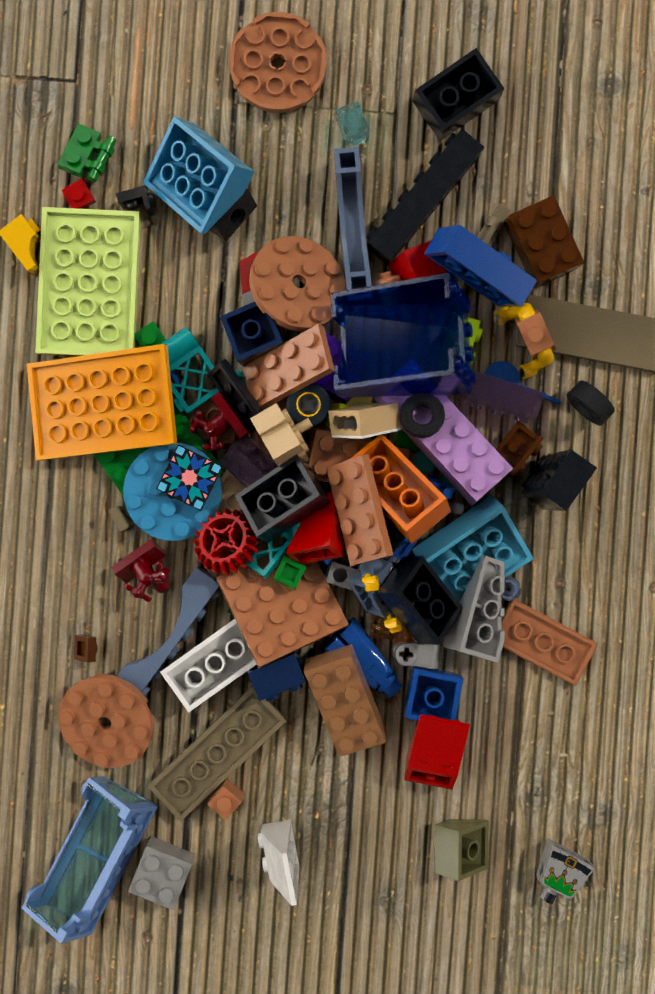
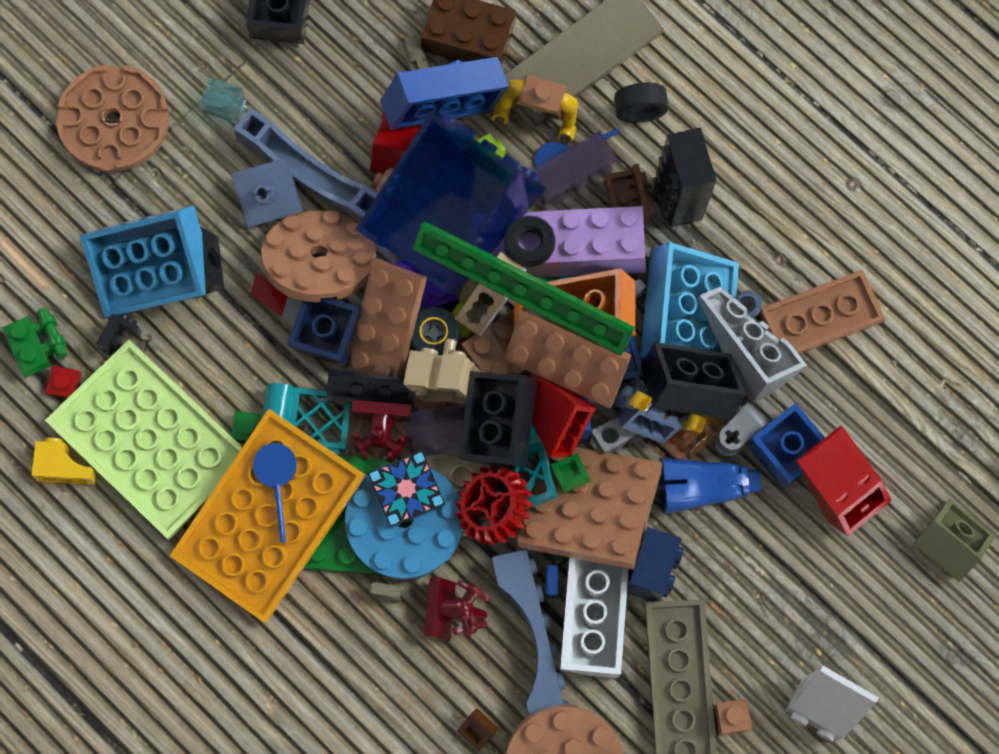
camera: 50 degrees left, 15 degrees down
(131, 382) = (275, 467): none -> blue piece
(215, 616) = (551, 582): none -> blue tile
(313, 210) = (267, 192): none -> sand blue tile
(345, 700) = (729, 524): medium nougat brick -> none
(376, 444) = (523, 288): none -> green tile
(425, 196) = (340, 93): black brick -> none

